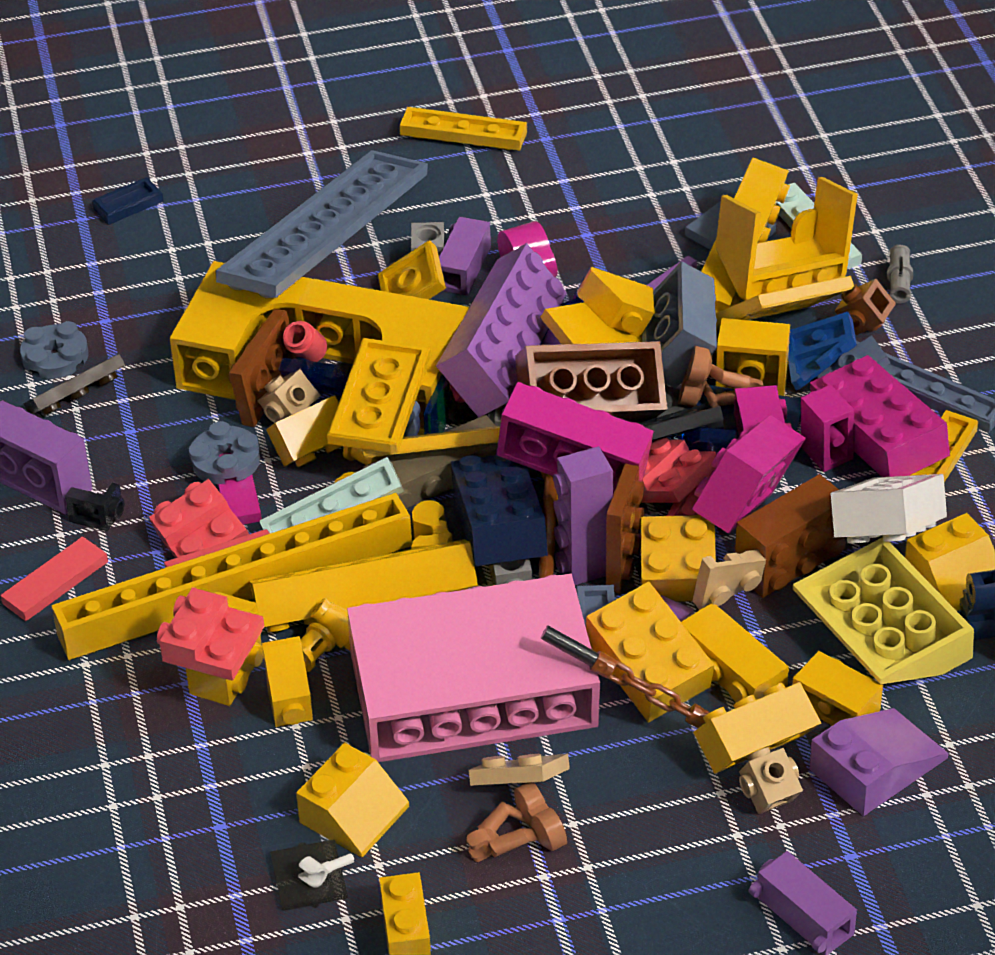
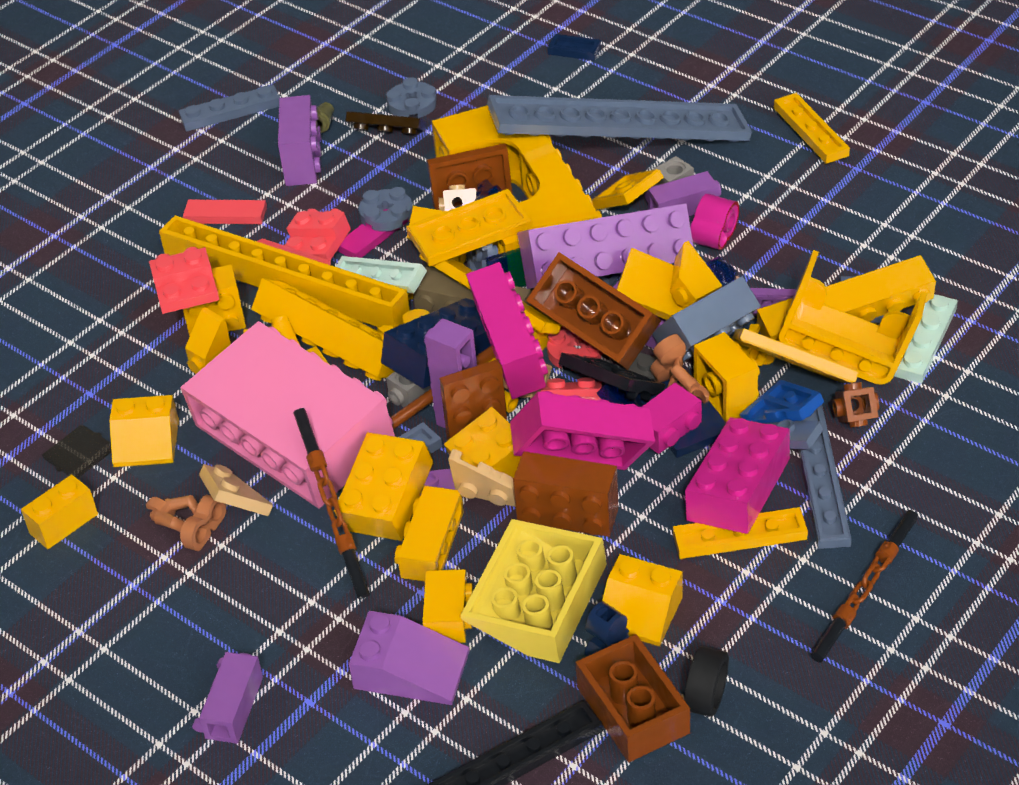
camera: 55 degrees right, 0 degrees up
(93, 508) = (294, 192): black bracket -> none
(304, 341) = (507, 176): coral brick -> none
(316, 873) = (73, 451): white hand -> none
(755, 725) = (361, 576): yellow brick -> none
(770, 779) = (325, 613): tan brick -> none
(828, 428) = (692, 445): dark pink brick -> none
(888, 507) = (624, 520): white brick -> none
(900, 261) = (926, 406): light grey pin -> none

